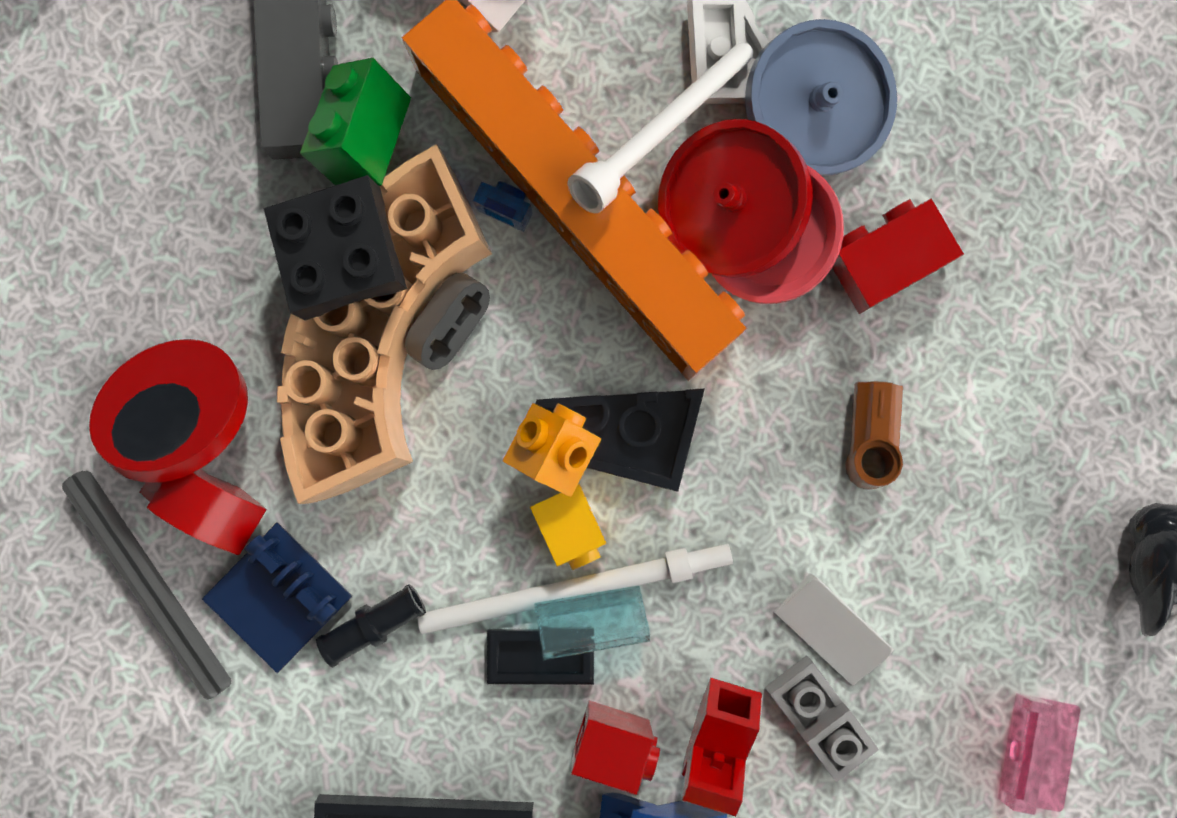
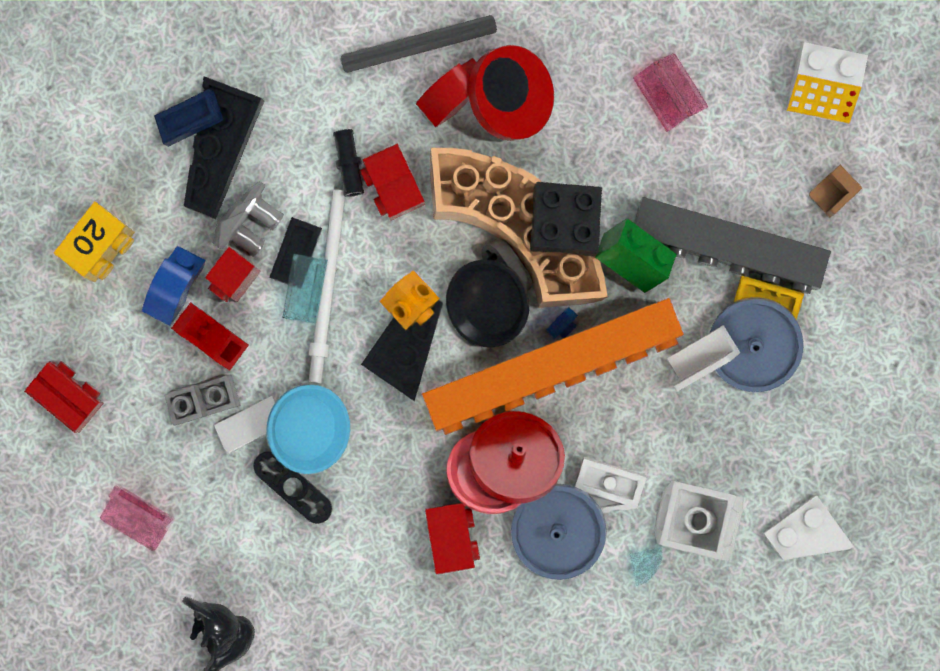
camera: 105 degrees right, 0 degrees up
(89, 171) = (670, 91): none -> clear pink panel
(277, 597) = (384, 114): dark blue hinge -> none
(376, 545) = (393, 182): none -> red brick
(512, 327) = (487, 303): none -> black piece
(535, 776) = (230, 226): none -> light grey connector
(569, 528) = (362, 295): yellow brick -> none
(597, 182) = (544, 375): white piece -> none
(810, 537) = (308, 429): none -> medium azure piece
(875, 428) = (356, 491): dark orange piece -> none
(924, 520) = (306, 509): none -> black beam

